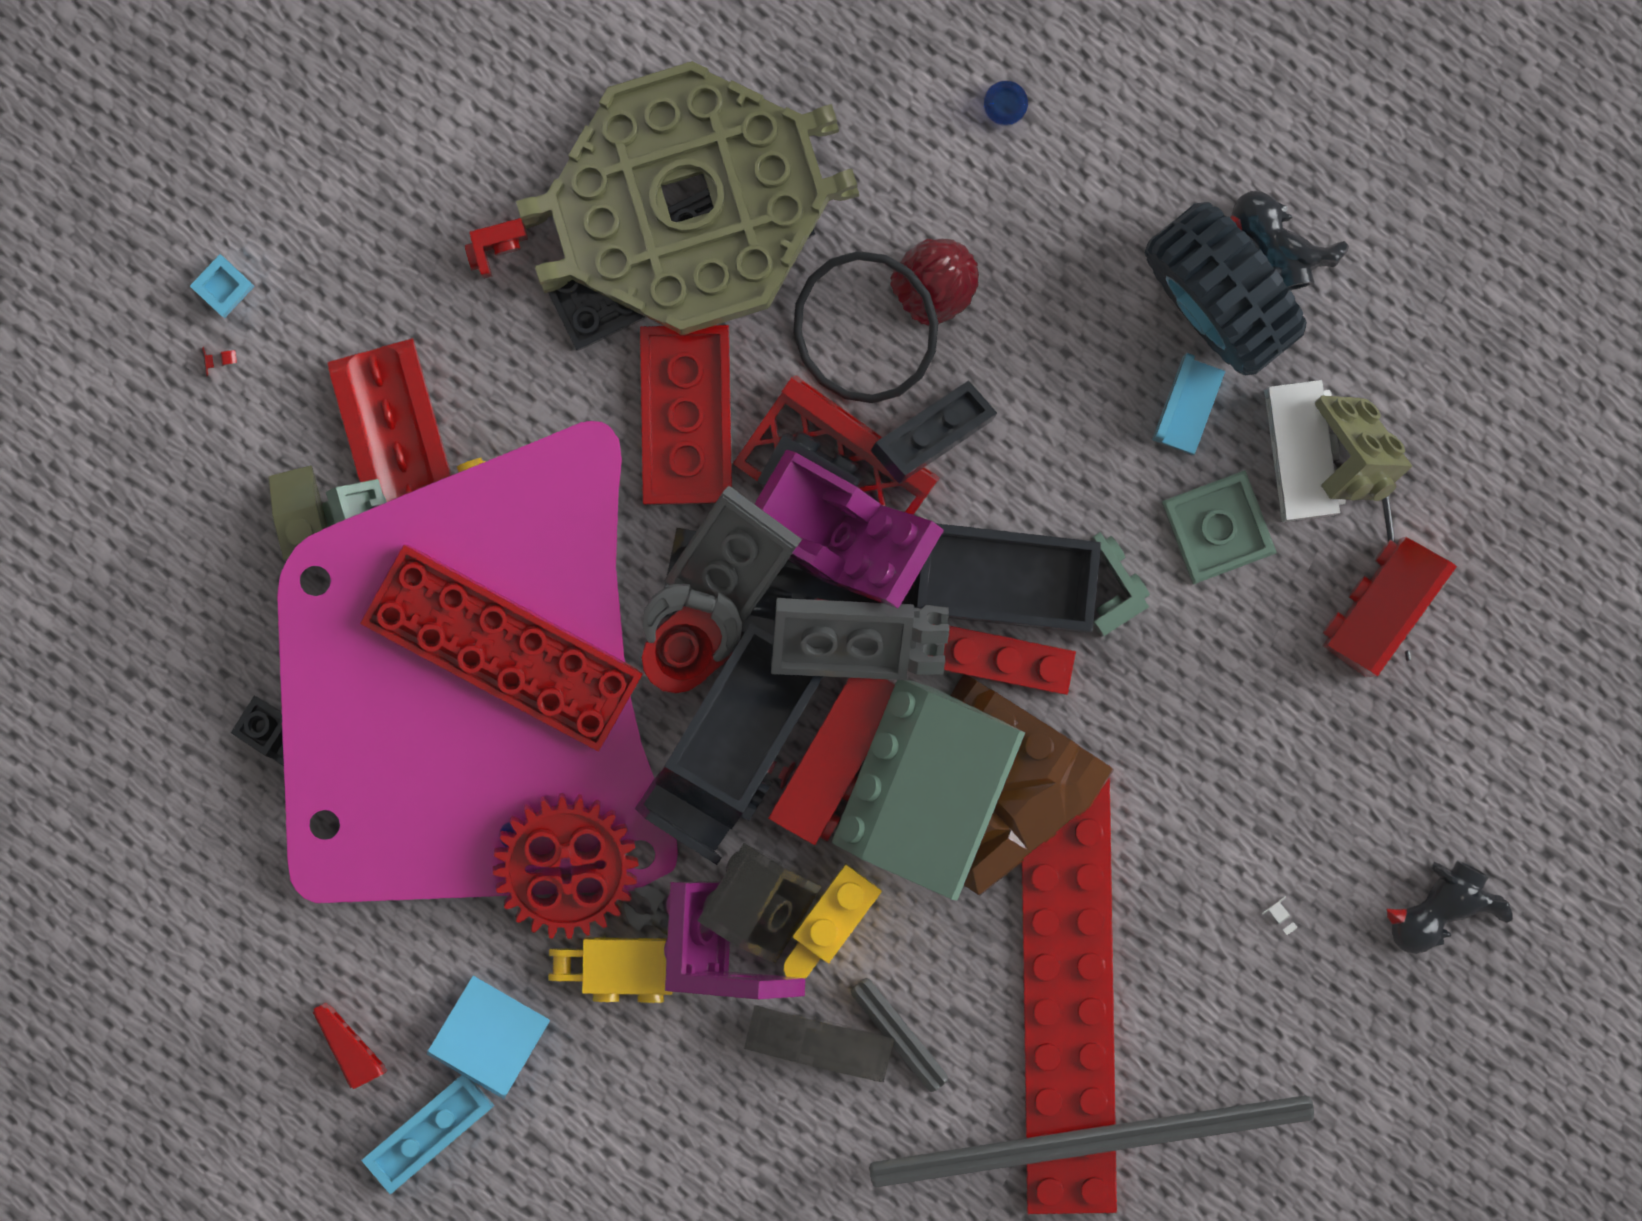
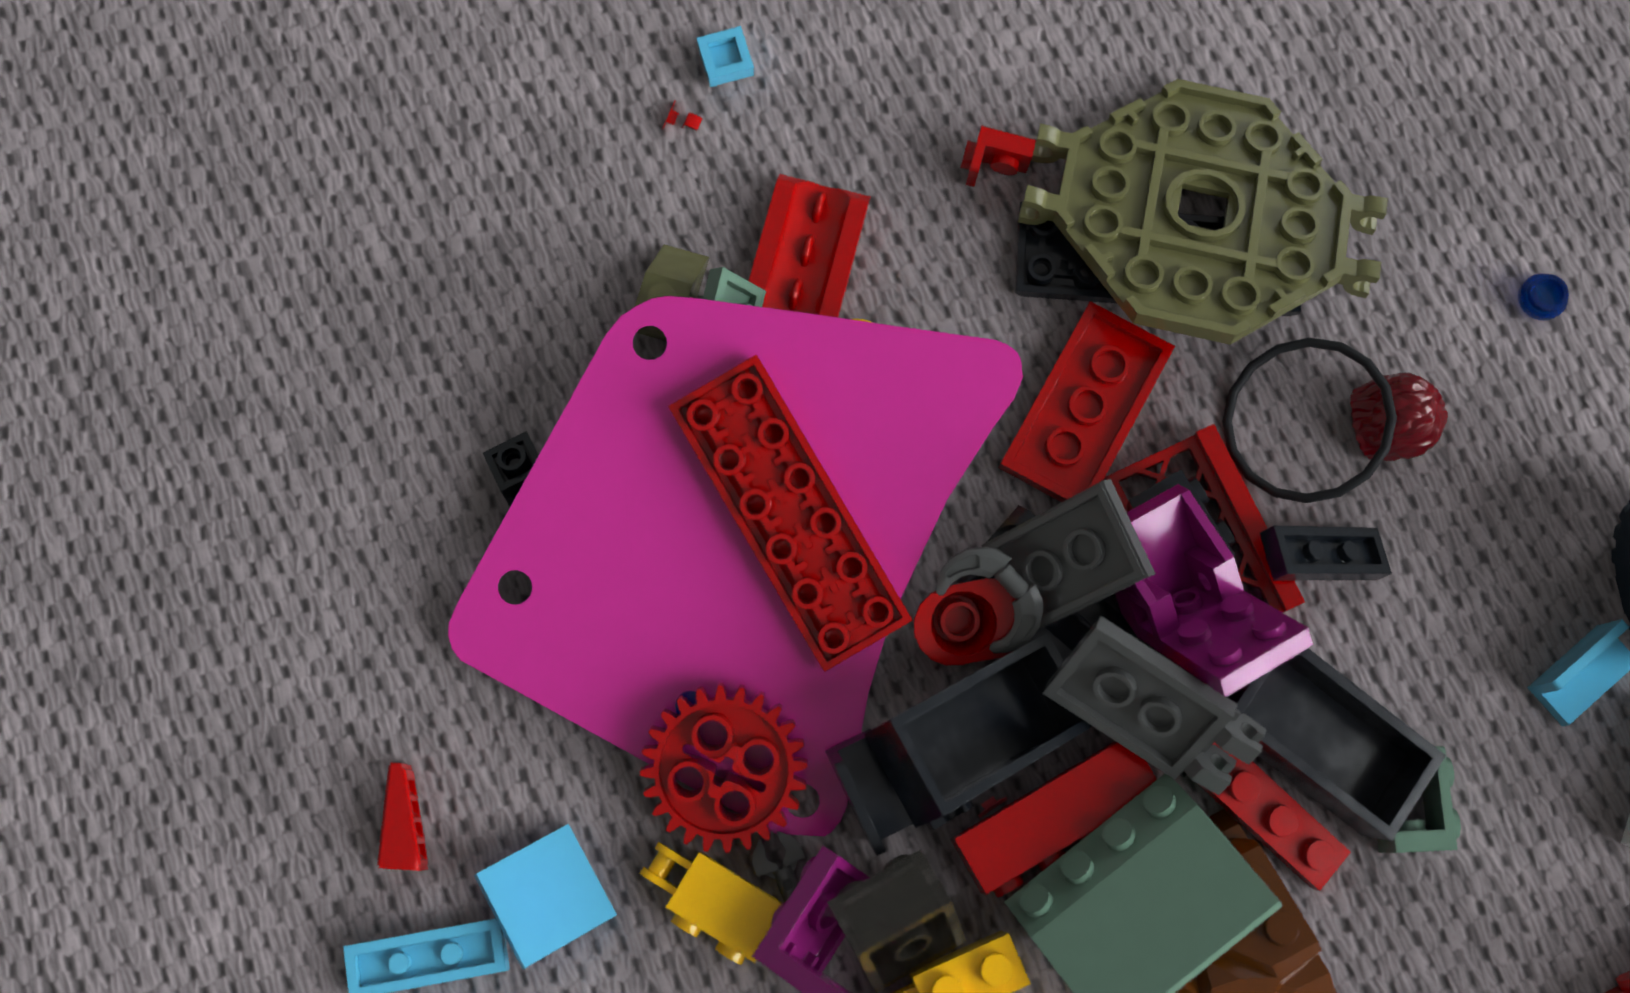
camera: 20 degrees right, 10 degrees down
(1219, 527) = (1556, 811): sand green tile -> none

